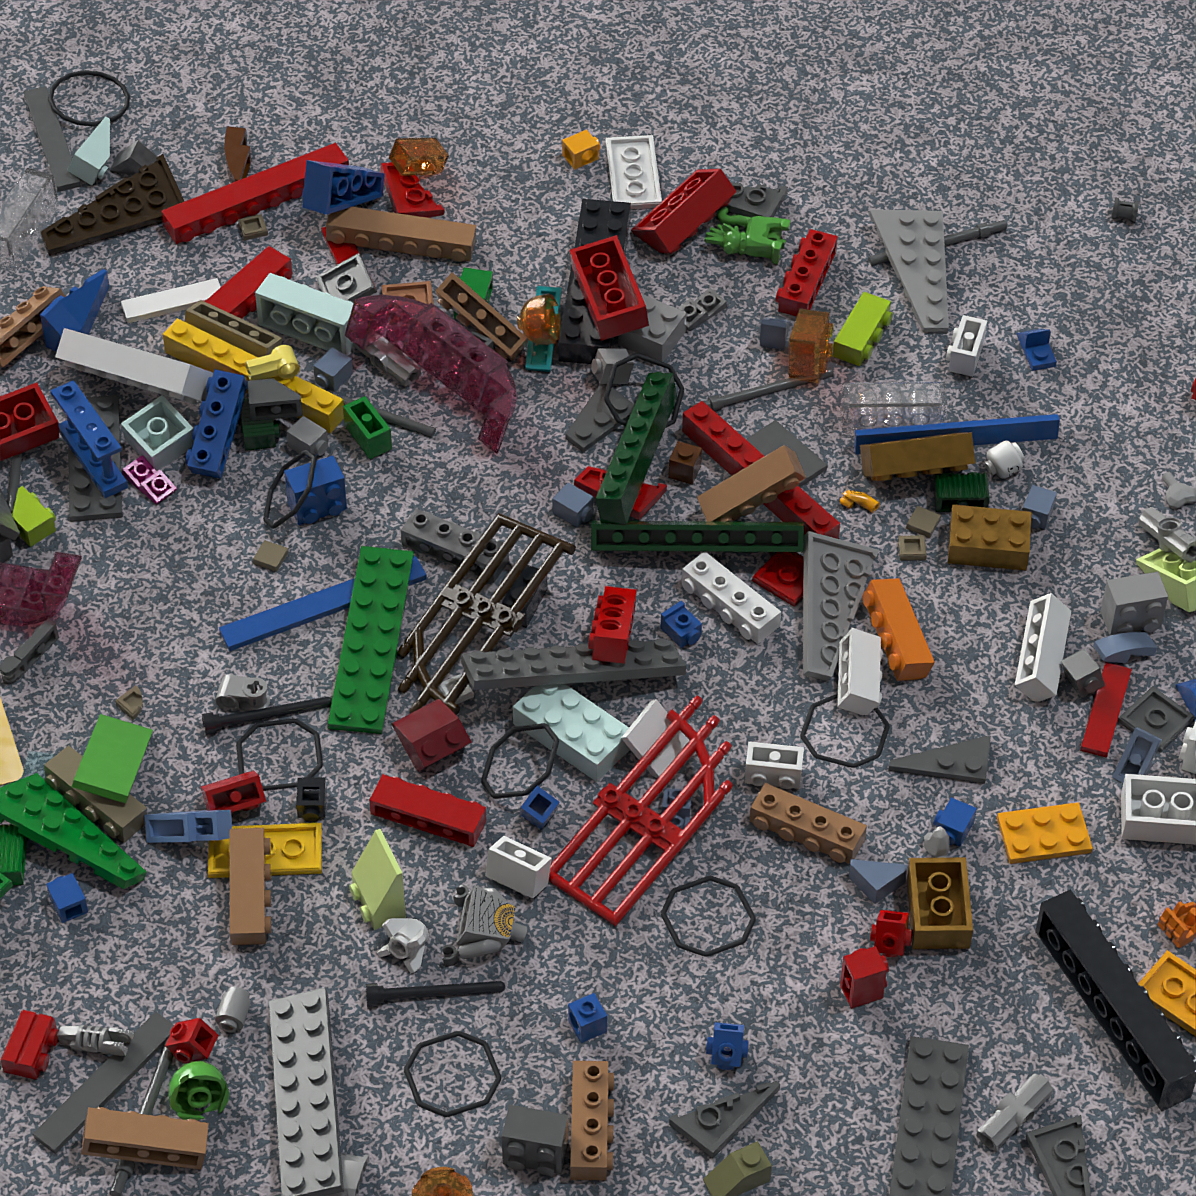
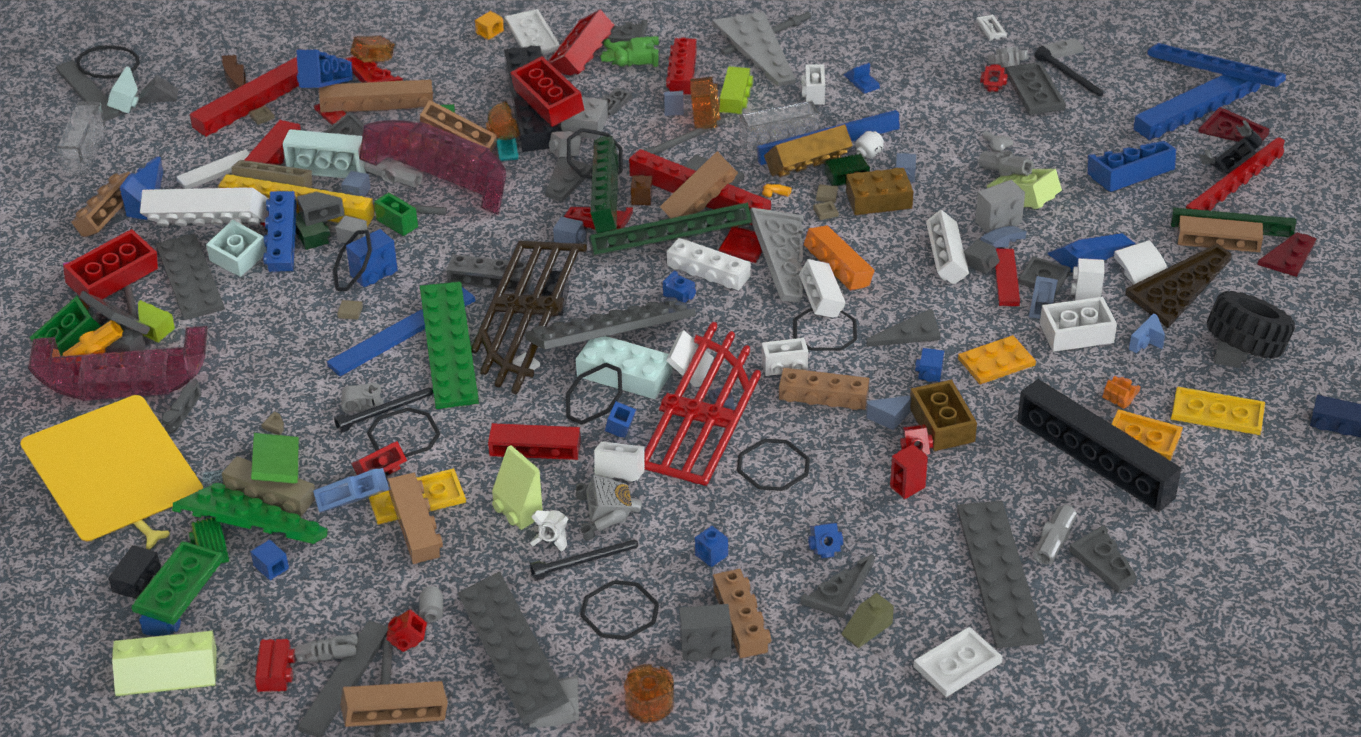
camera: 15 degrees left, 10 degrees down
(89, 439) = (180, 266): blue fence -> none
(117, 210) = (153, 122): dark brown wing -> none
(148, 480) = (232, 280): dark pink slope -> none
(197, 1085) = (424, 659): bright green cylinder -> none
(279, 362) = (316, 182): light yellow piece -> none
(311, 798) = (442, 458): black brick -> none
(431, 734) = (519, 391): dark red slope -> none
(613, 624) = (631, 293): red brick -> none
(937, 843) = (923, 378): light grey rock -> none

